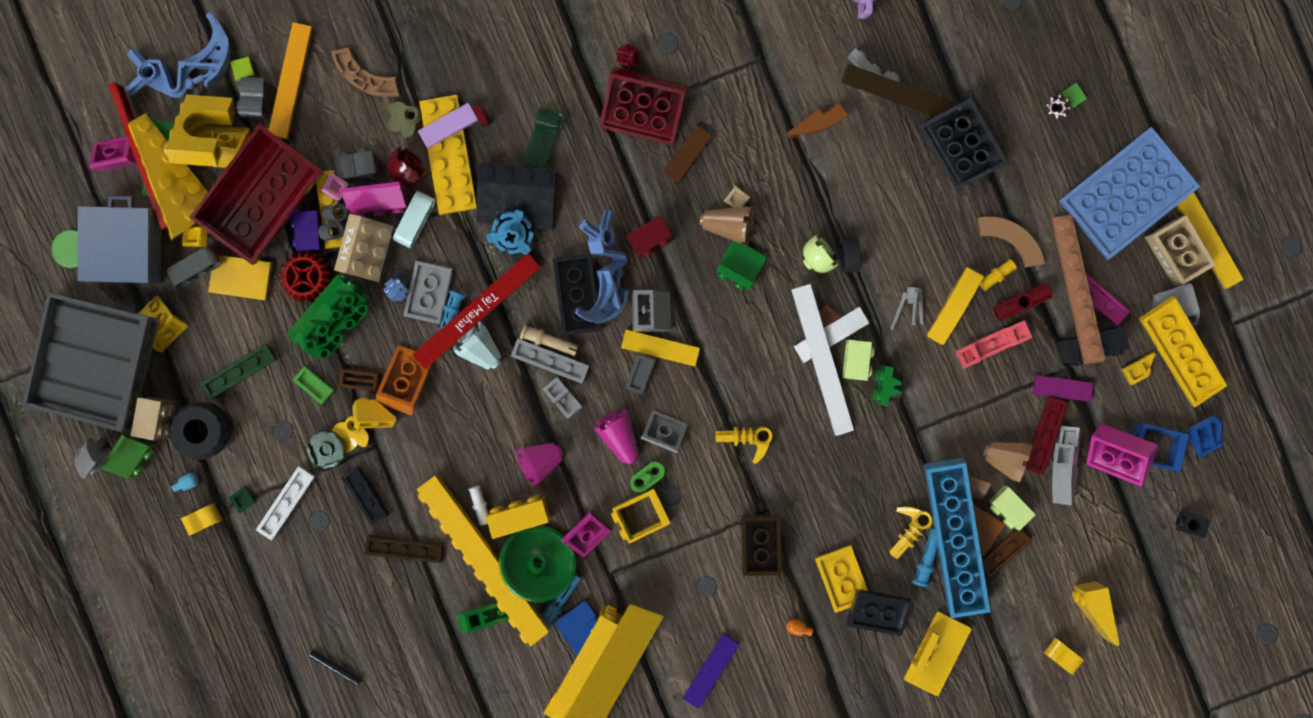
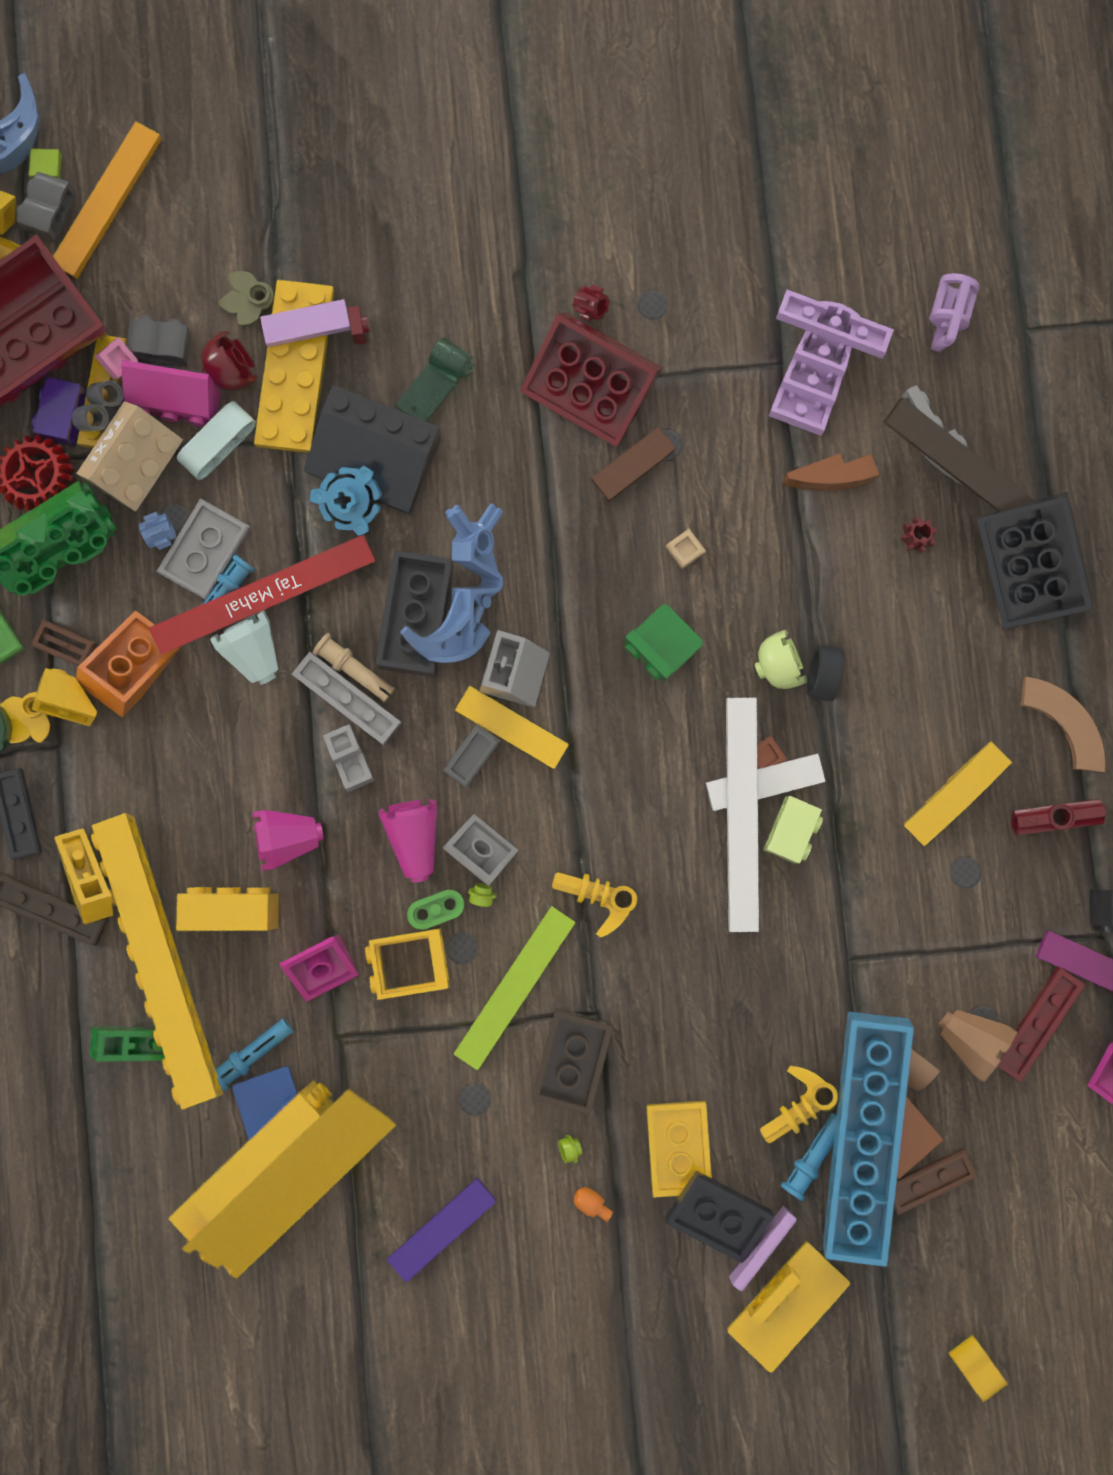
camera: 20 degrees right, 5 degrees down
(362, 79) = (207, 228): medium nougat tile -> none
(421, 522) = (84, 876): none -> yellow slope
(479, 504) = (177, 874): white pin -> none
(537, 564) = (232, 989): green dish -> none
(650, 237) = (544, 563): dark red brick -> none
(673, 459) = (481, 895): none -> lime plate
(711, 510) = (514, 988): none -> lime tile
(729, 223) = (665, 577): medium nougat cone -> none
(775, 599) = (569, 1149): none -> lime plate
(788, 47) = (821, 358): none -> lavender slope
(888, 386) = (828, 881): green piece -> none
(890, 143) = (922, 526): none -> dark red gear
(912, 623) = (763, 1248): none -> lavender tile
(914, 297) = (900, 763): light grey plant -> none
(993, 344) = (999, 866): coral slope -> none
(997, 274) = (1031, 767): yellow pin -> none
(1011, 508) = (959, 1118): yellowish green brick -> none
(1065, 465) = (1057, 1078): light grey slope -> none
(1096, 605) = (1050, 1308): yellow slope -> none

